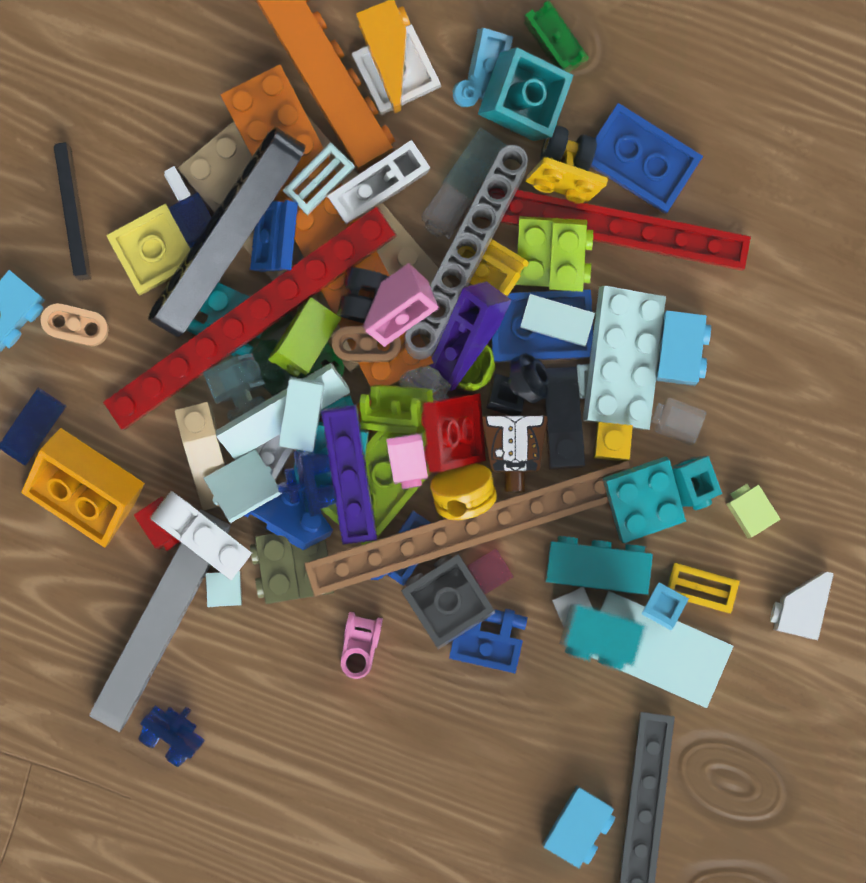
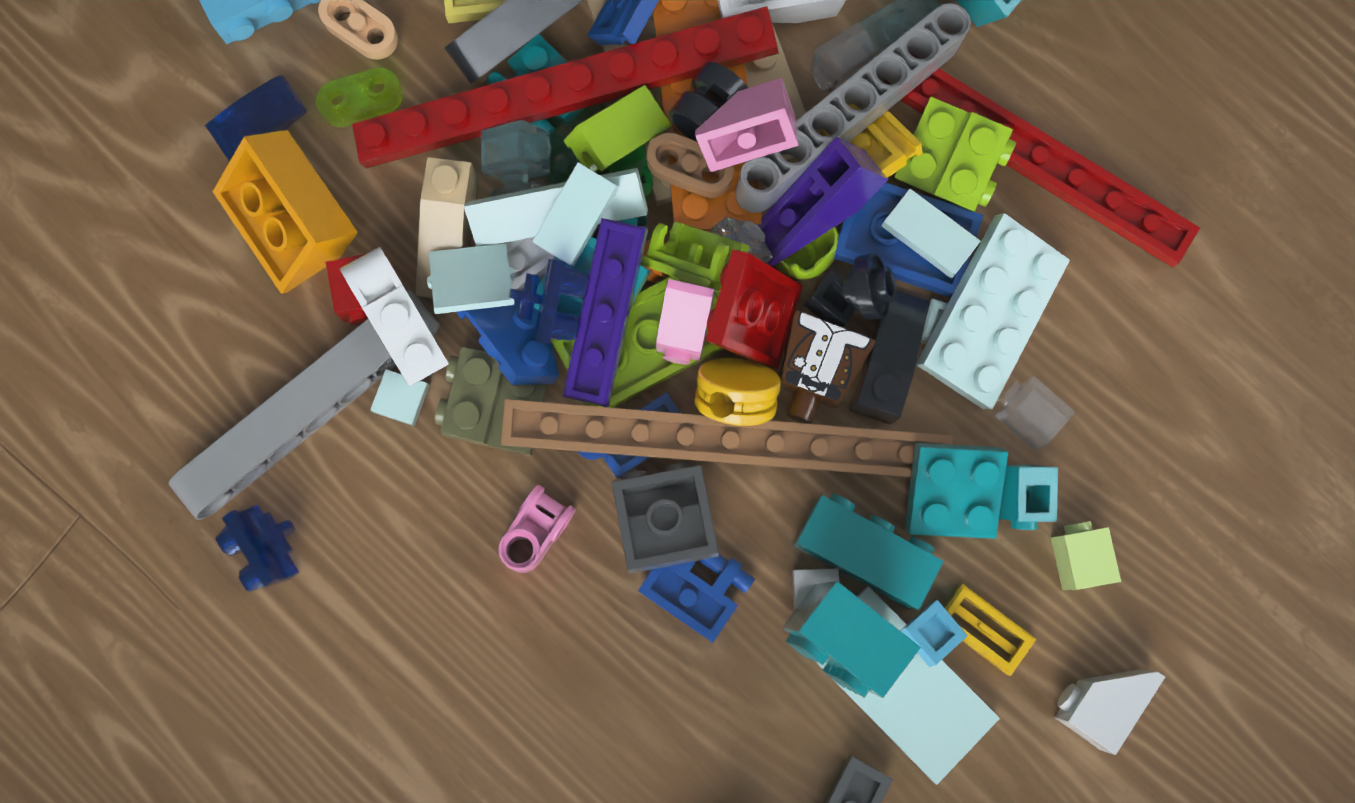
camera: 15 degrees right, 5 degrees down
(99, 381) = (359, 100): none -> clear neon green plate
(490, 571) = (731, 504): clear pink tile -> none
(570, 175) = (1009, 65): yellow plate -> none
(612, 441) = (943, 404): yellow brick -> none
(643, 158) = (1099, 91): blue plate -> none
(682, 348) = (1069, 327): medium azure brick -> none

